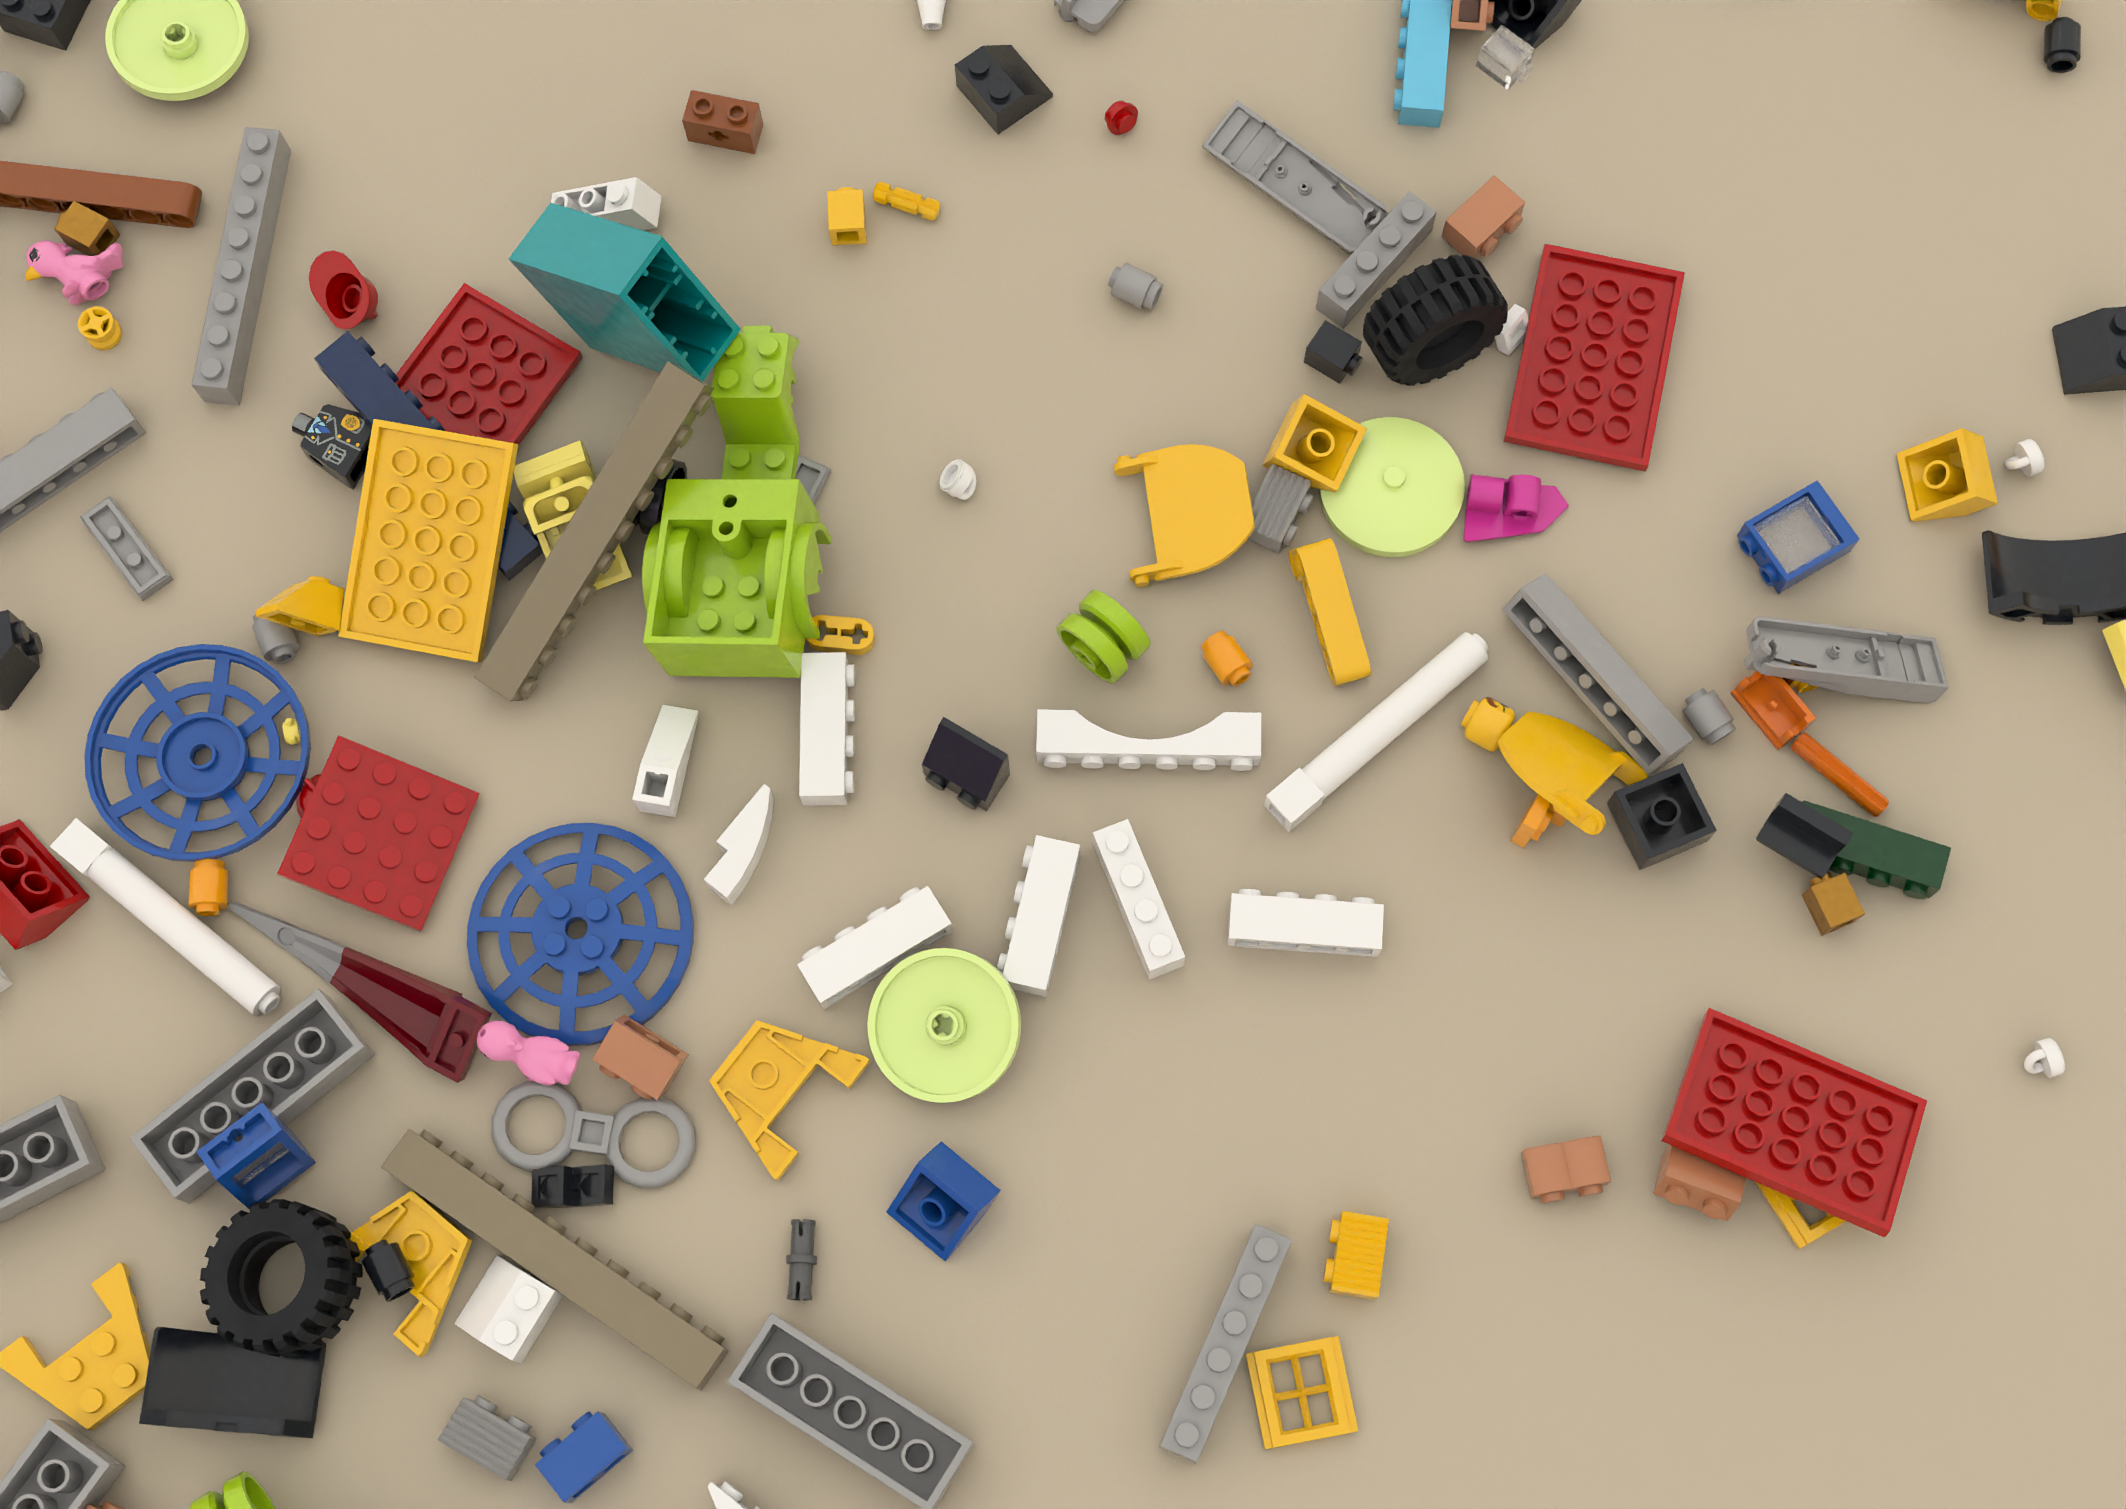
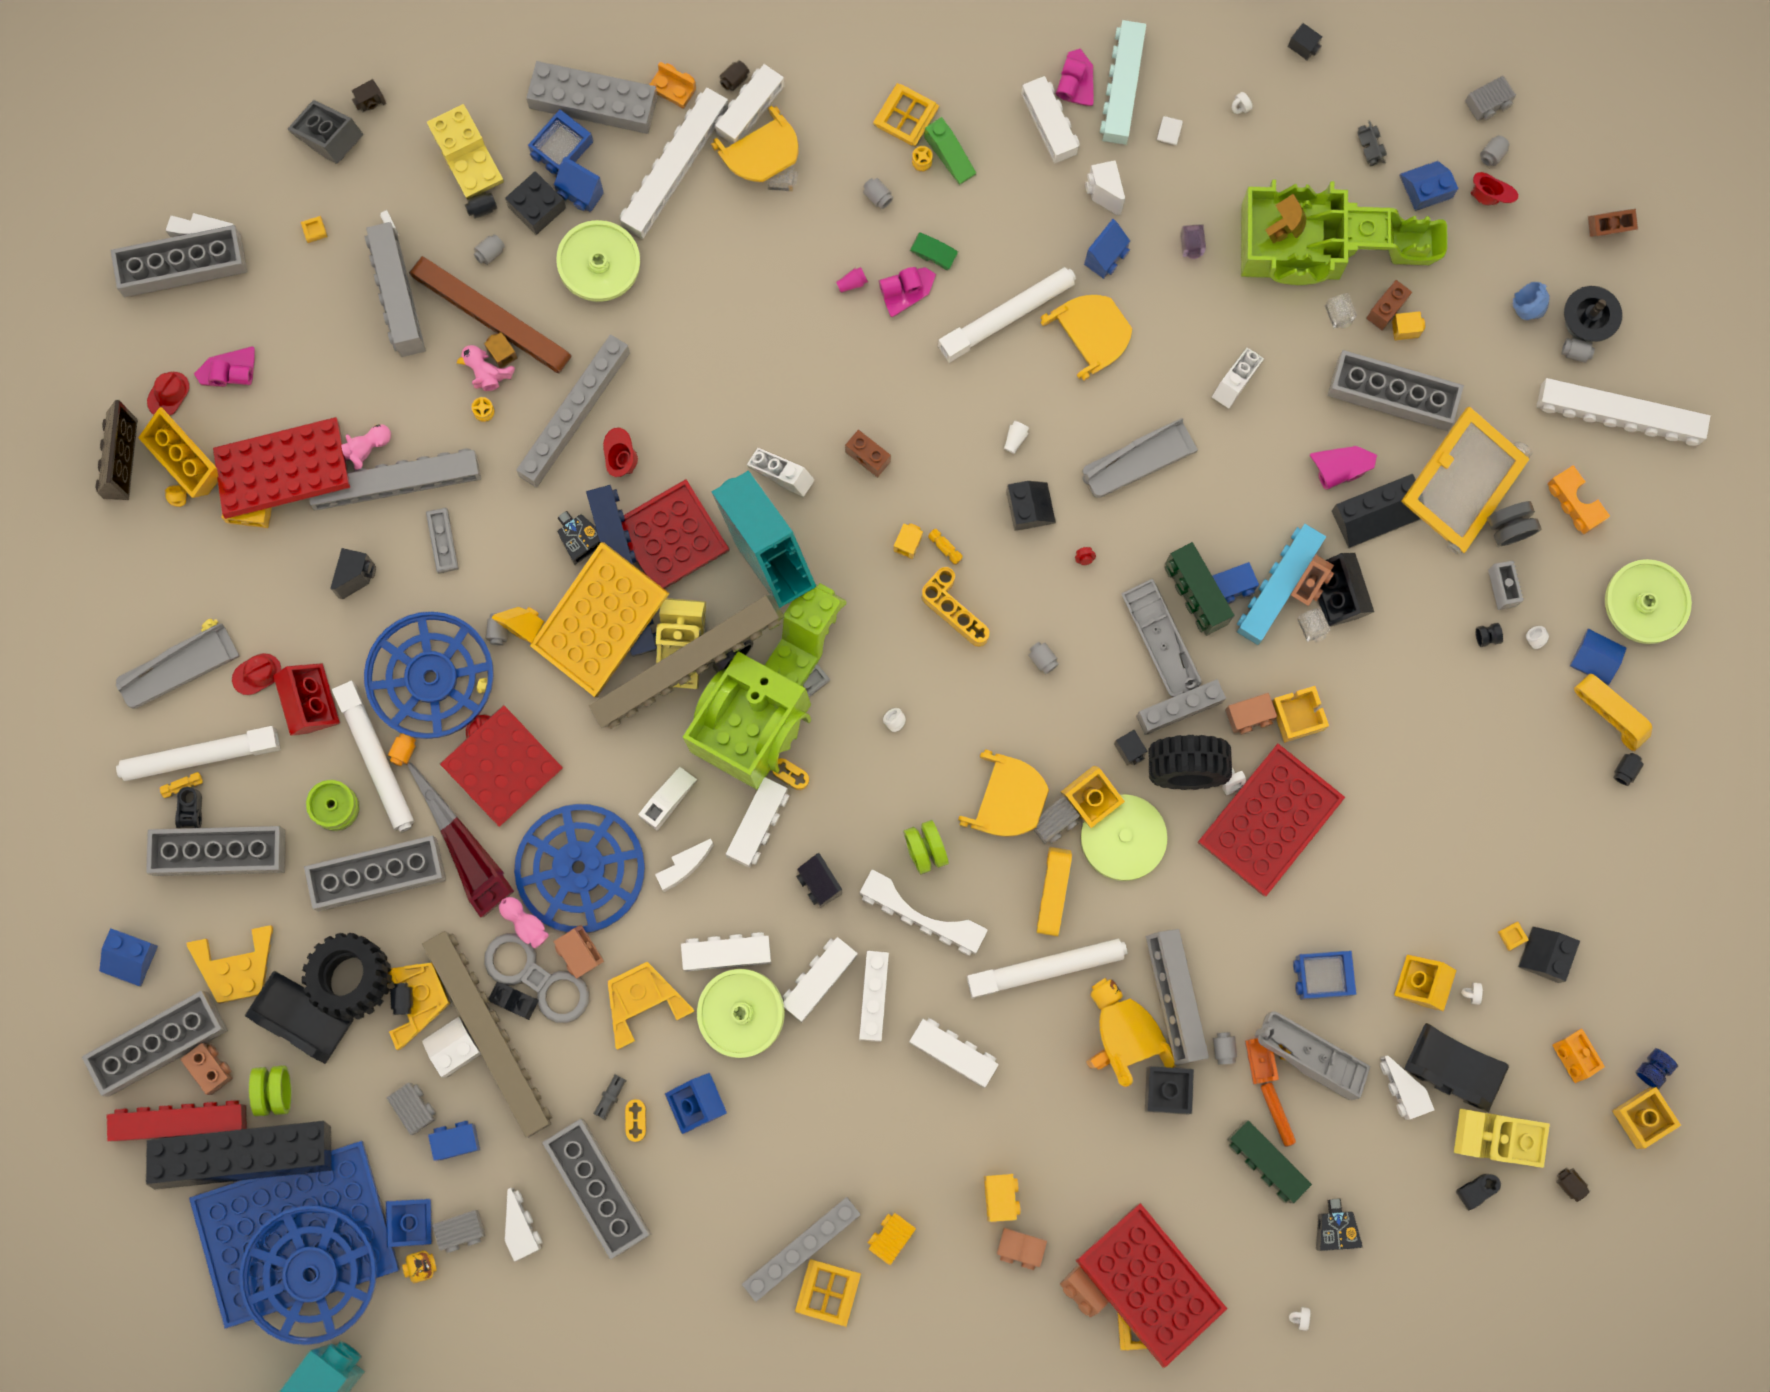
camera: 20 degrees right, 5 degrees up
(134, 1023) = (326, 795): none -> lime wheel
(256, 1156) = (362, 908): blue window -> none
(852, 1280) = (629, 1120): none -> yellow beam
(973, 278) = (958, 610): none -> yellow beam
(1227, 659) = (986, 890): light orange brick -> none
(1313, 81) = (1199, 589): none -> dark green brick
(1358, 55) = (1237, 582): none -> blue brick
(1495, 1103) = (1001, 1197): none -> yellow brick
(1509, 507) = (1180, 881): dark pink panel -> none
(1551, 193) = (1297, 716): none -> yellow piece
(1803, 835) = (1235, 1140): black panel -> none
(1832, 903) = (1235, 1180): pearl gold brick -> none
(2013, 645) = (1410, 1094): none -> white slope
(2022, 897) = (1337, 1229): none -> black torso
(2033, 353) = (1513, 936): none -> yellow tile

